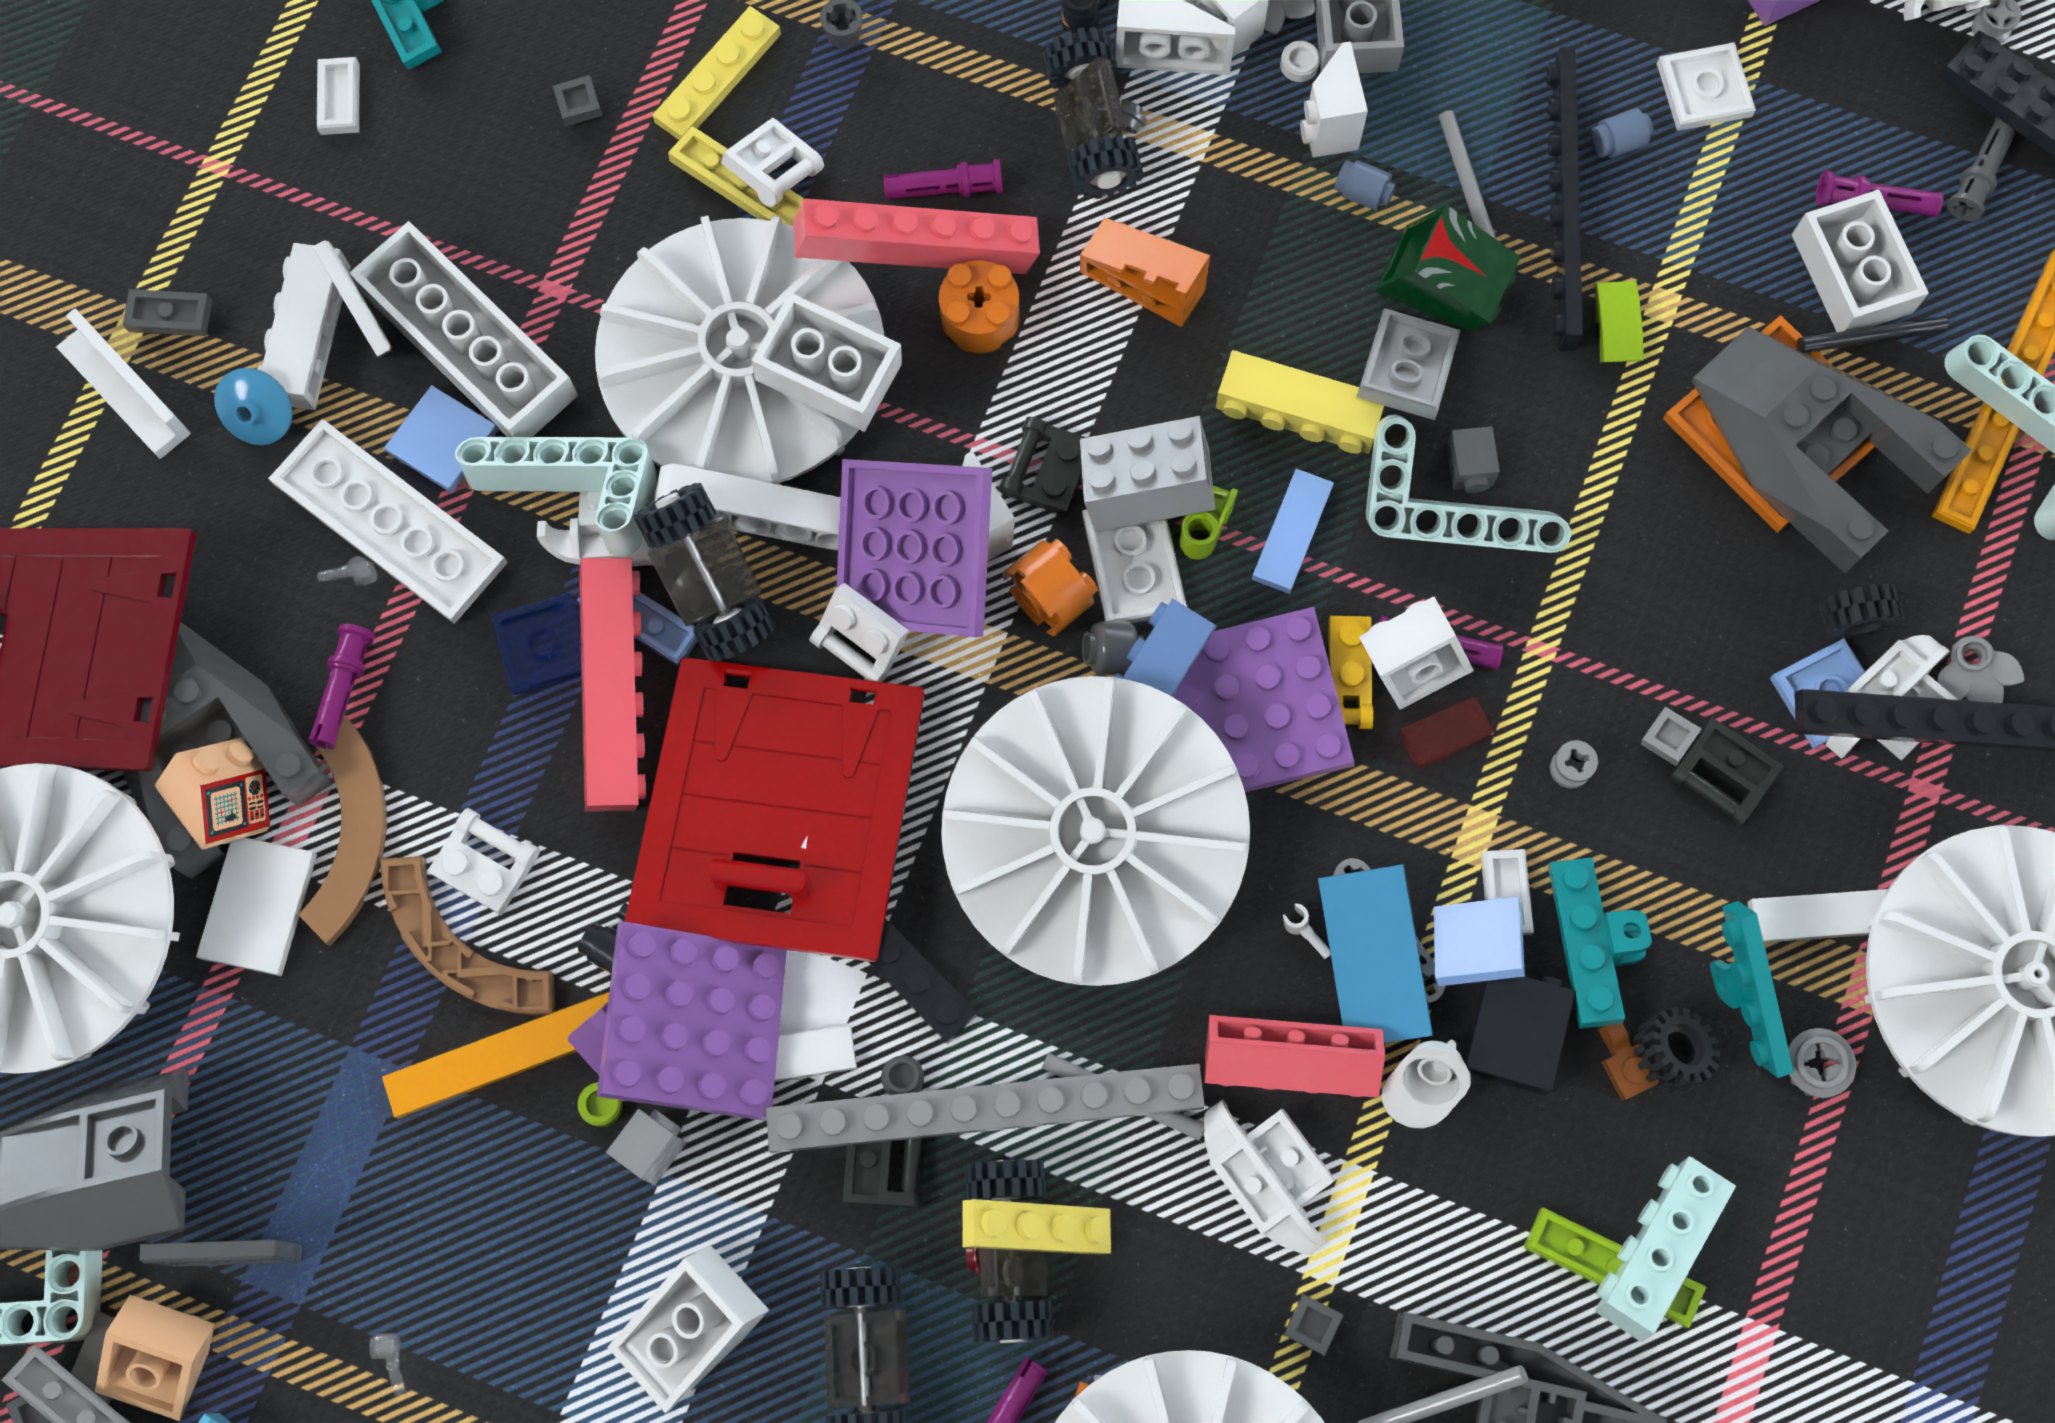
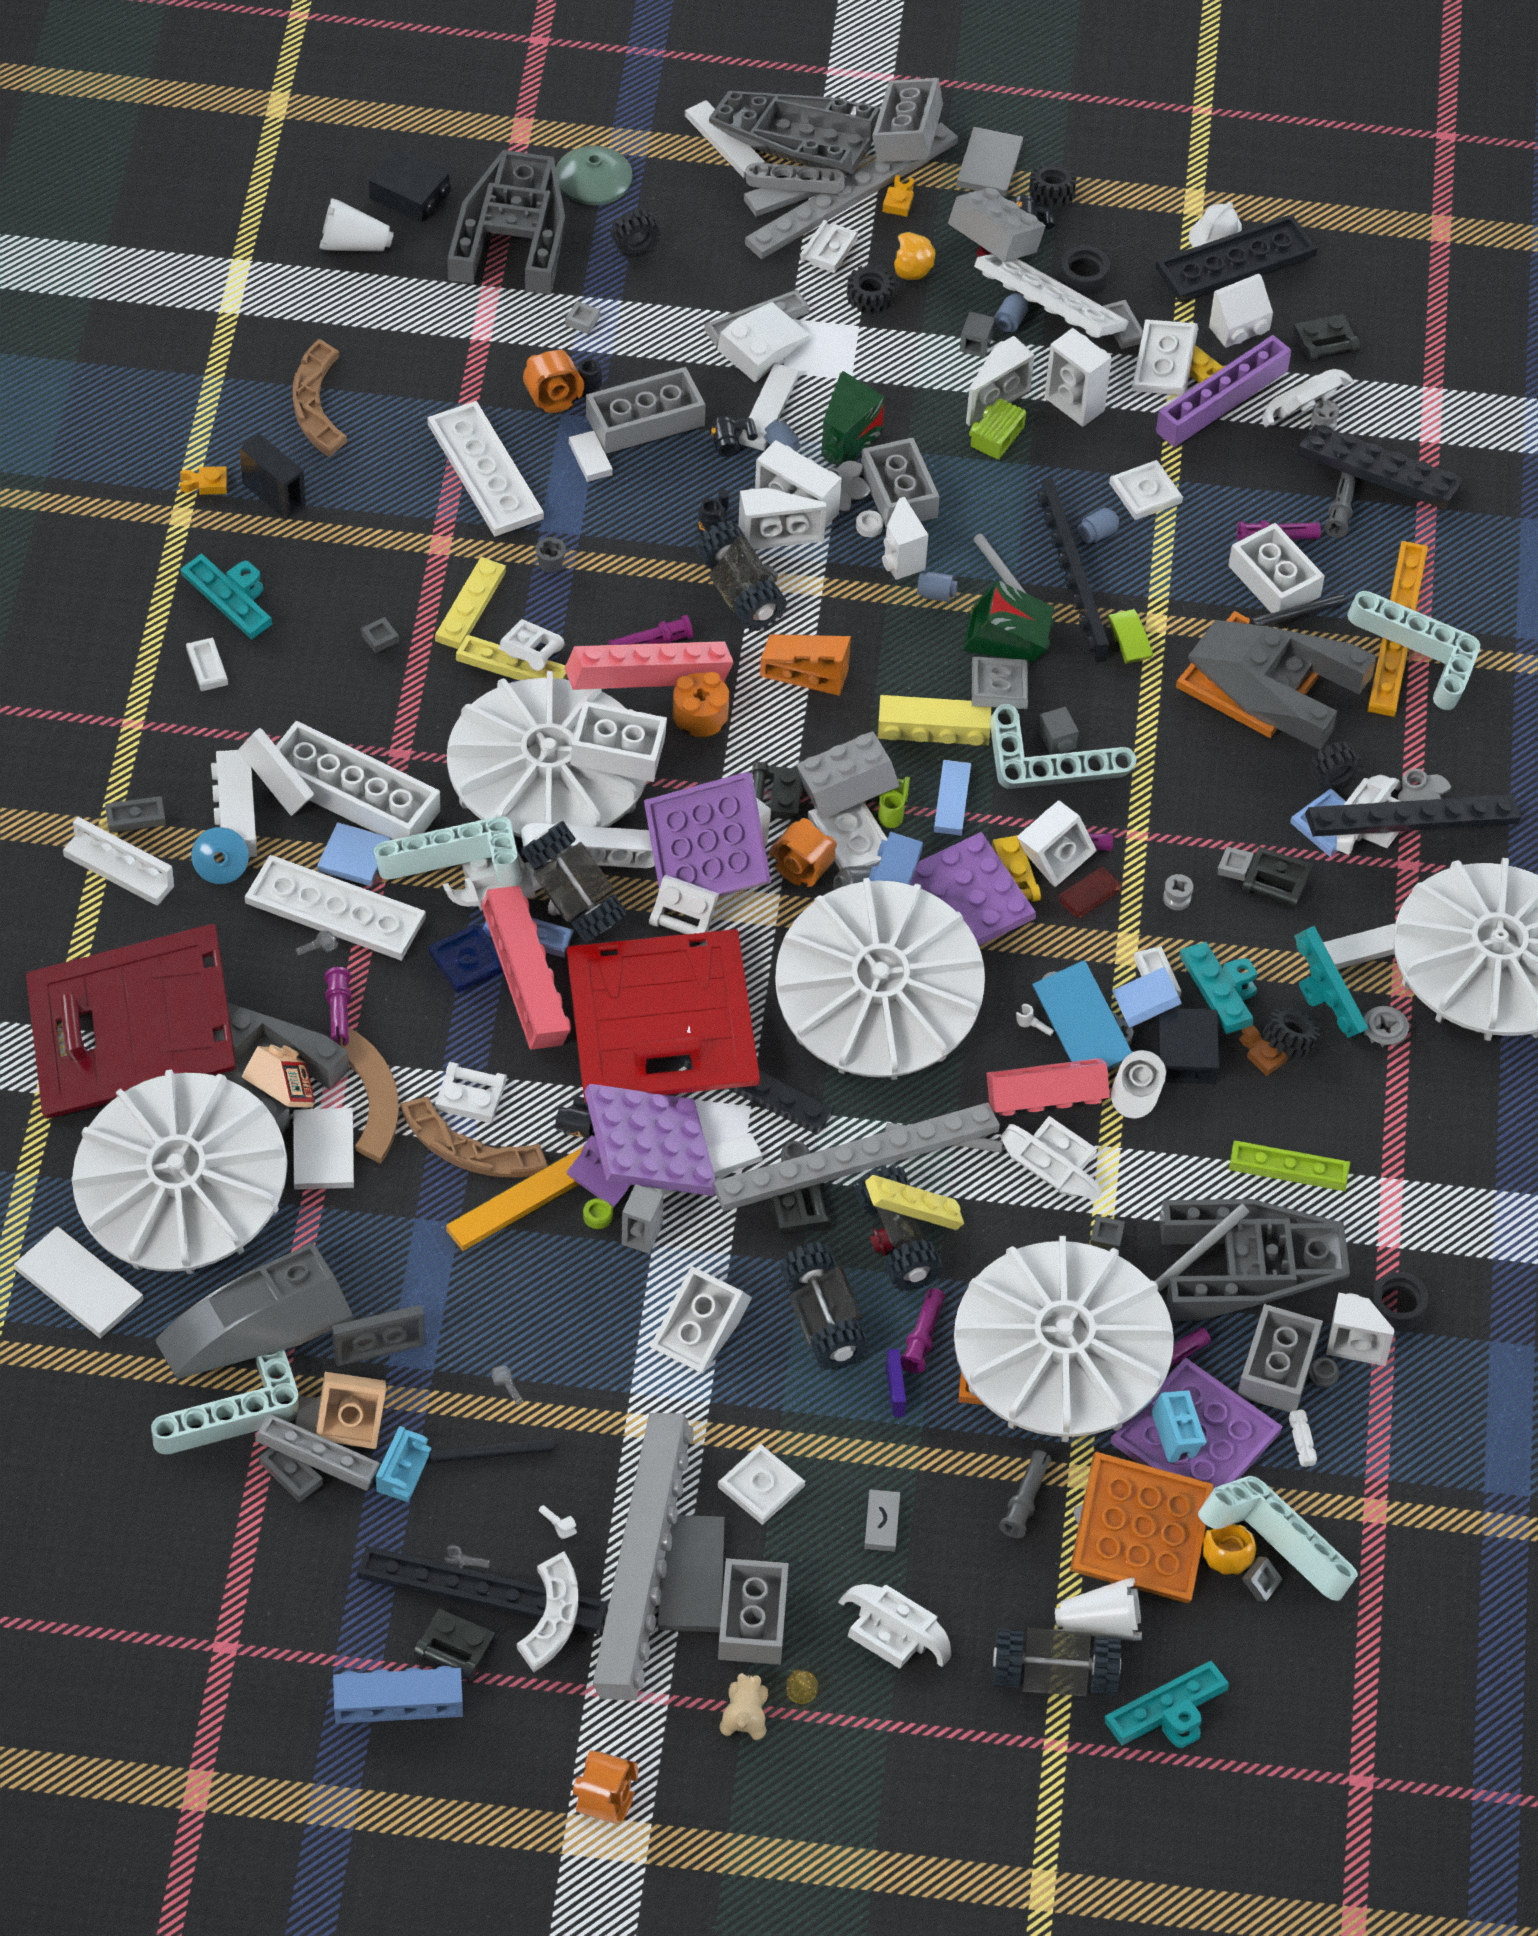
camera: 20 degrees left, 20 degrees down
(1664, 1248) = (1315, 1140): light aqua brick -> none

